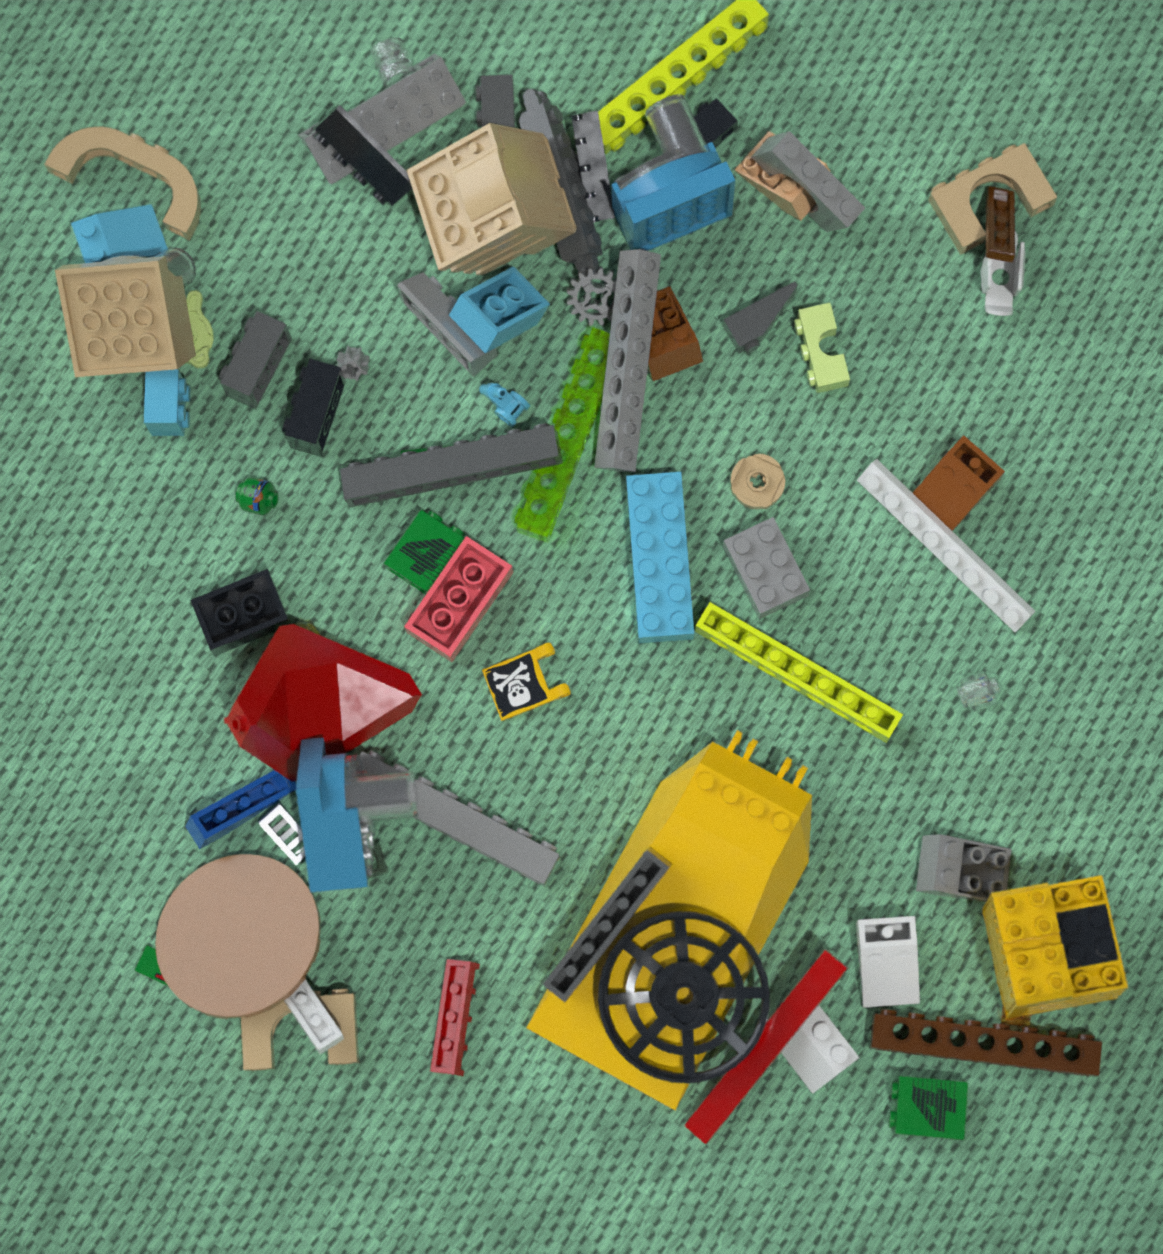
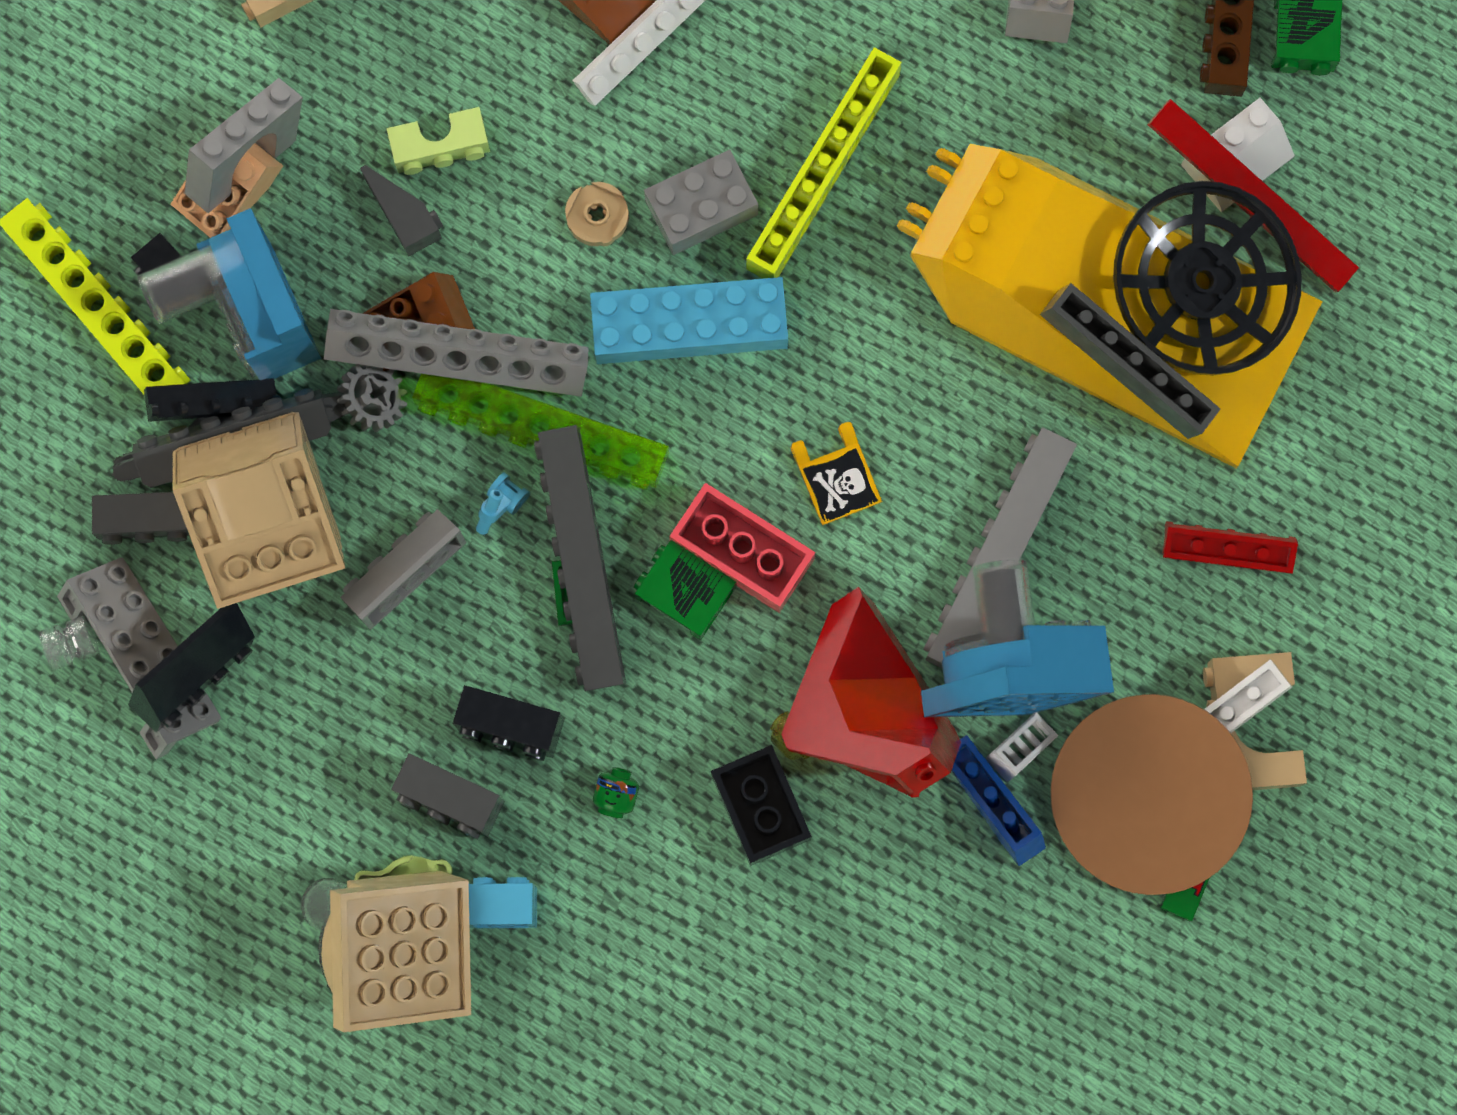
camera: 95 degrees left, 0 degrees up
(94, 142) = (174, 960): tan arch -> none
(119, 234) = (287, 975): medium azure slope -> none
(353, 363) = (449, 681): light grey gear -> none
(499, 309) = (391, 503): medium azure brick -> none
(888, 961) = (1145, 71): white slope -> none

